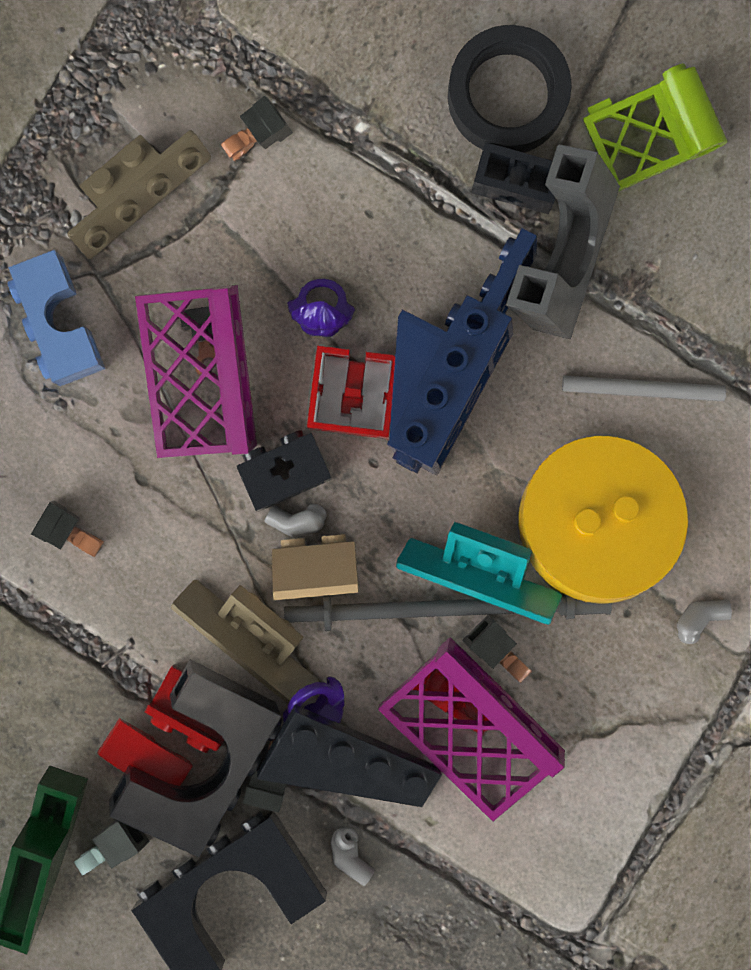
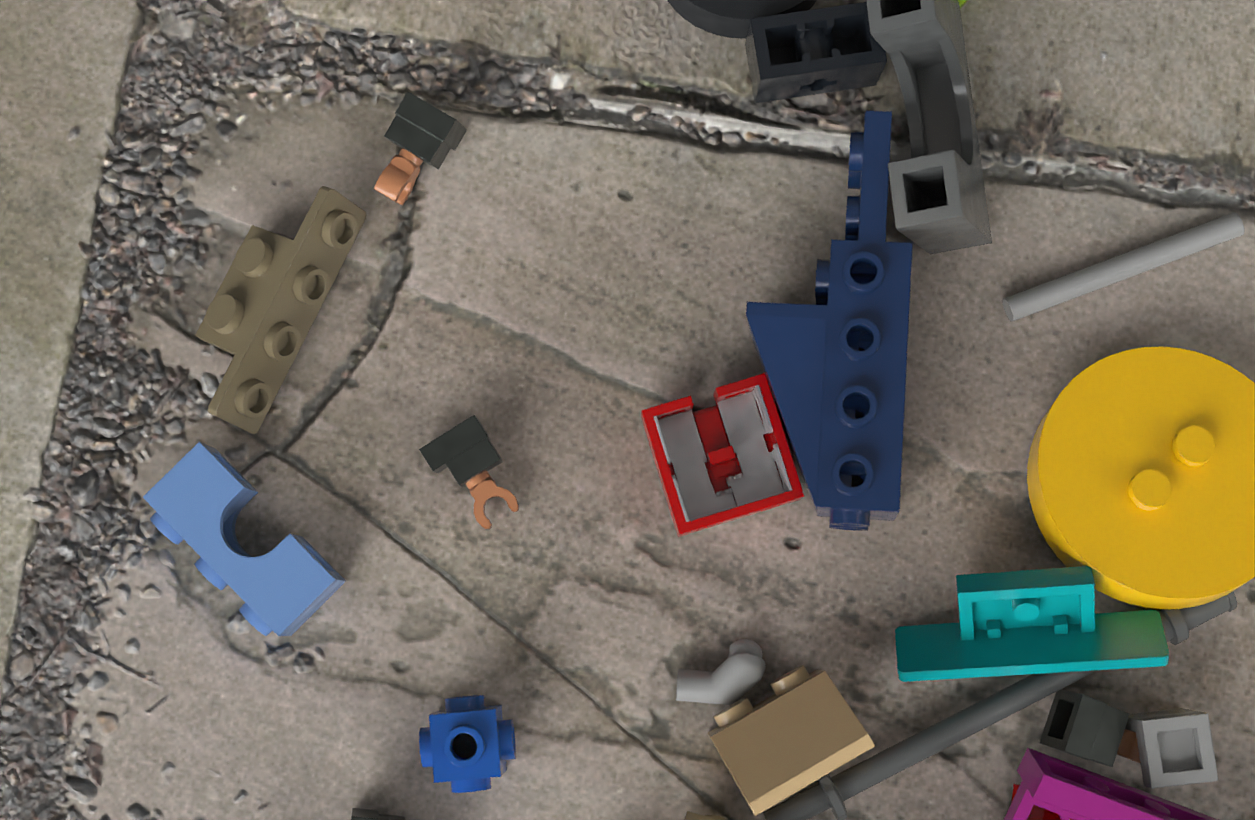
camera: 25 degrees left, 5 degrees down
(148, 496) = (492, 734): none -> blue brick
(231, 370) = (532, 500): magenta fence -> none
(270, 490) = (709, 599): black brick -> none
(319, 317) = (627, 367): dark purple piece -> none
(533, 674) = (1174, 747): none -> light grey panel

